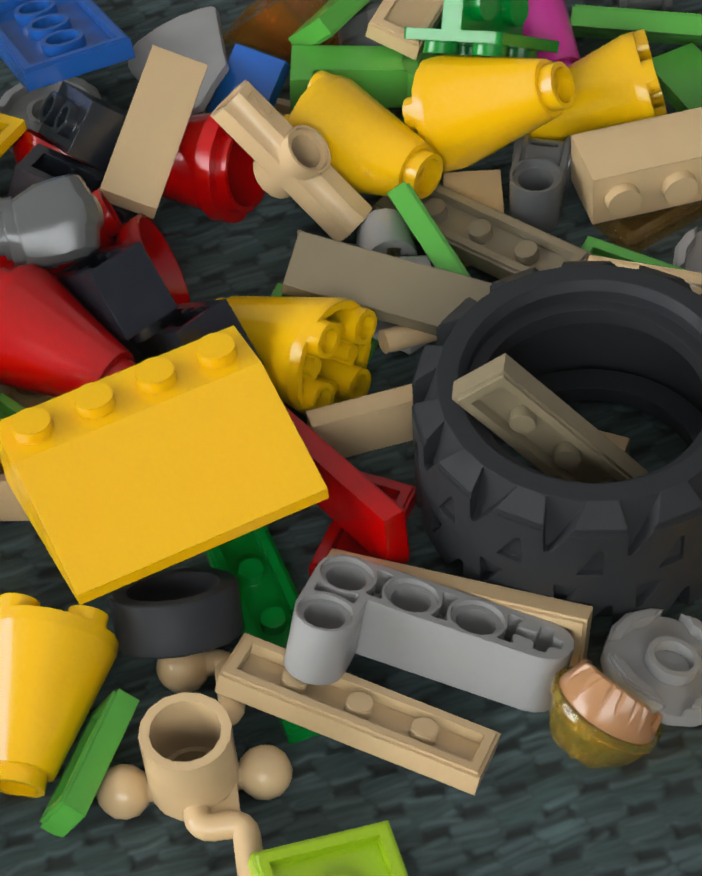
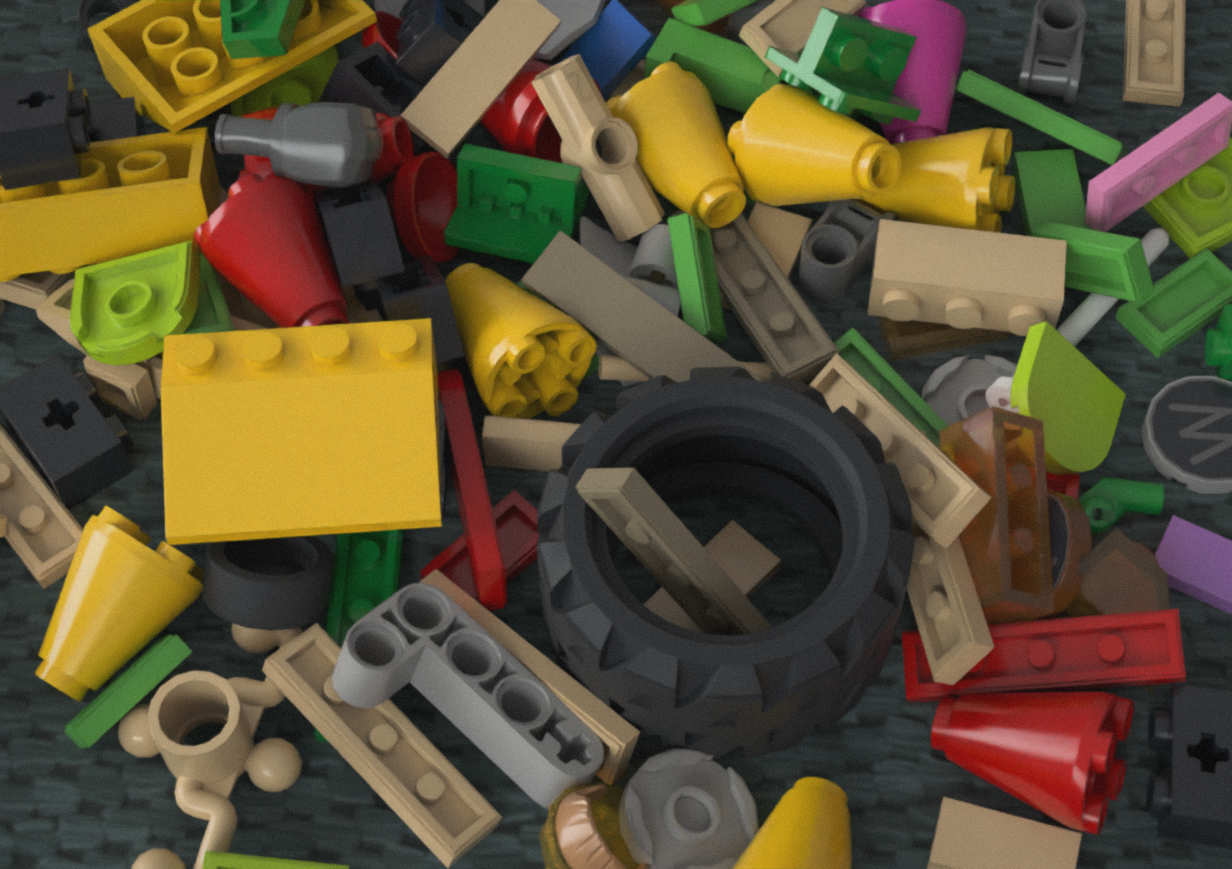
camera: 20 degrees right, 10 degrees up
(231, 238) = (513, 203): none -> green bracket

